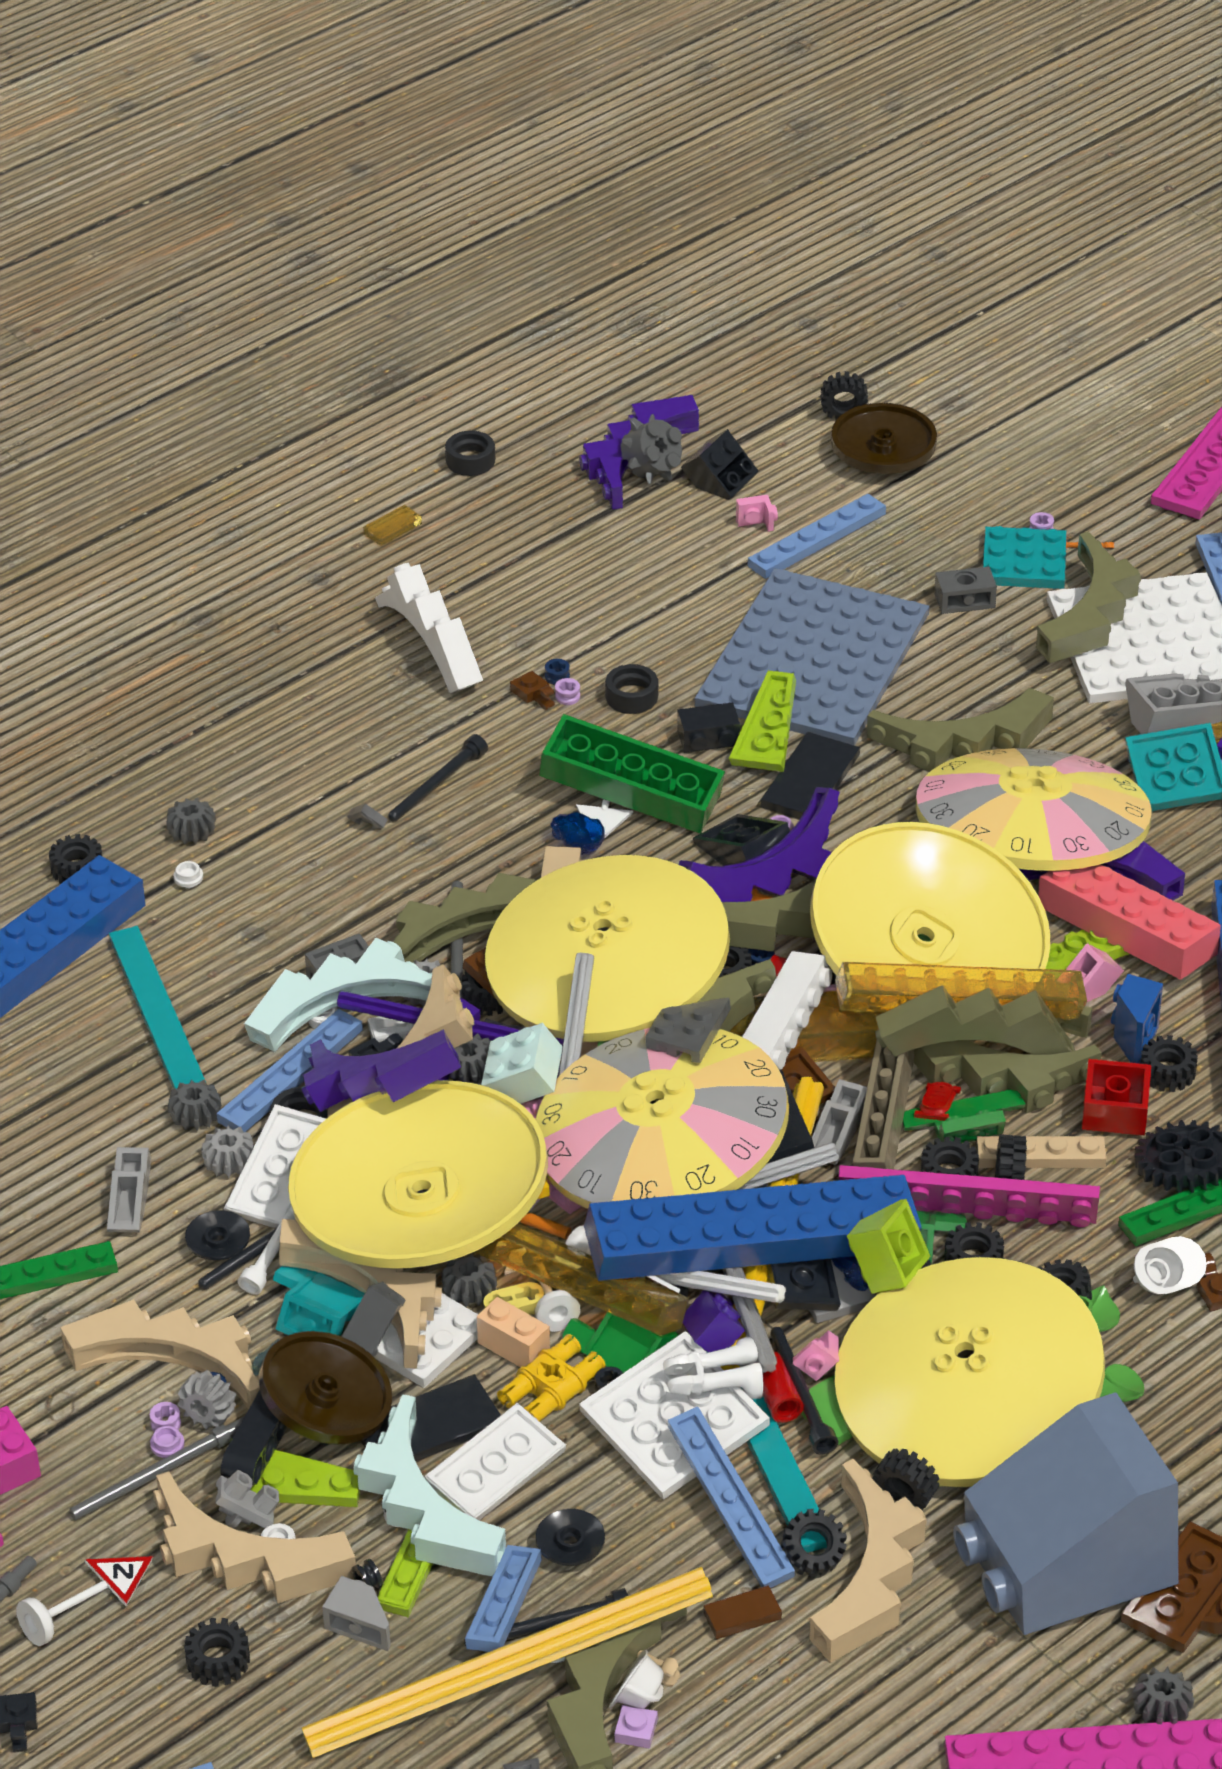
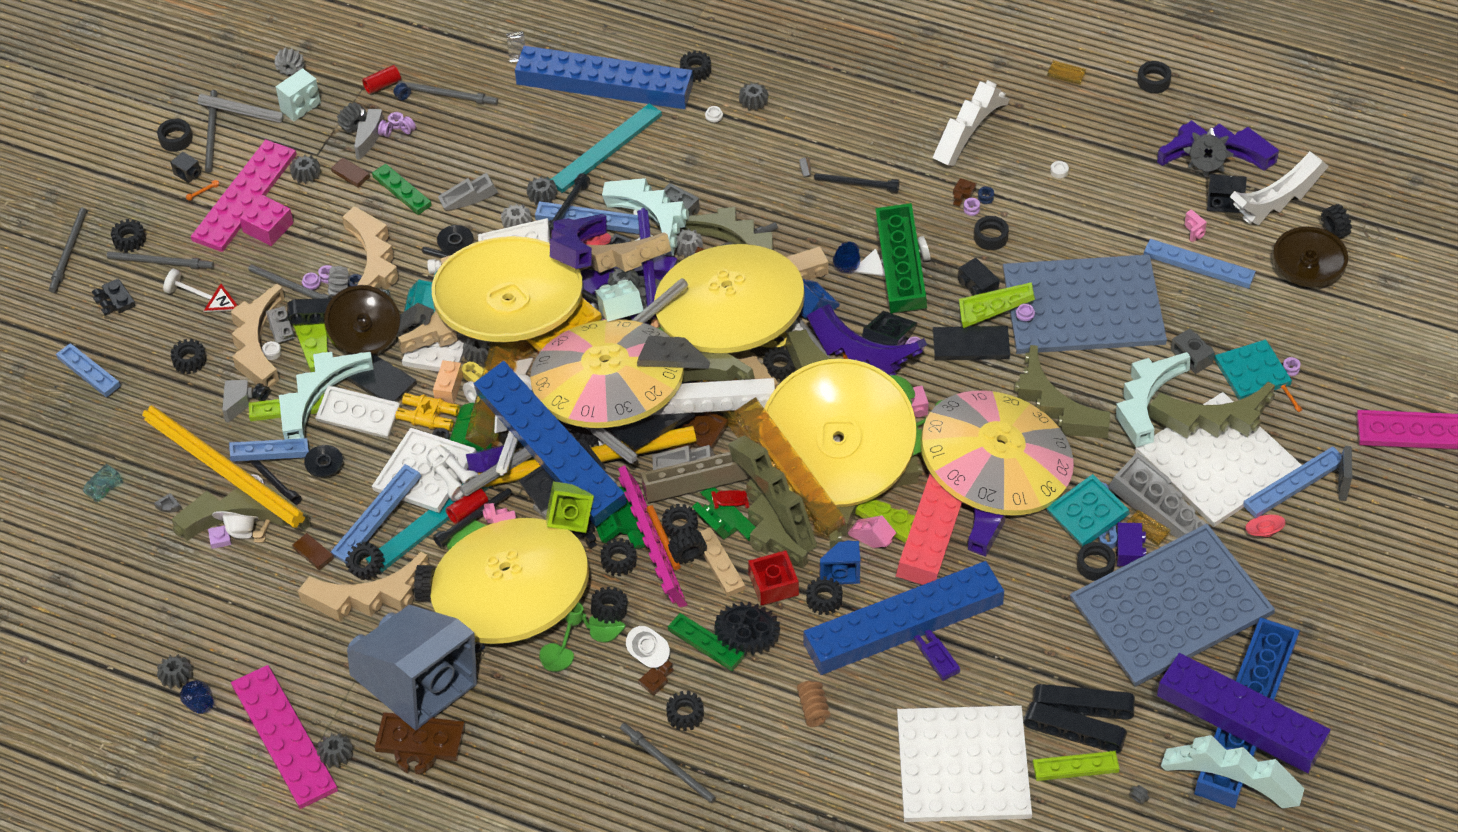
camera: 65 degrees right, 10 degrees up
(212, 1057) = (581, 182): none -> black piece
(561, 593) = (1059, 169): none -> white tile
(759, 410) = (1296, 183): none -> white arch
(807, 700) = (1025, 312): none -> lavender plate
(1013, 657) = (1146, 381): none -> light aqua arch

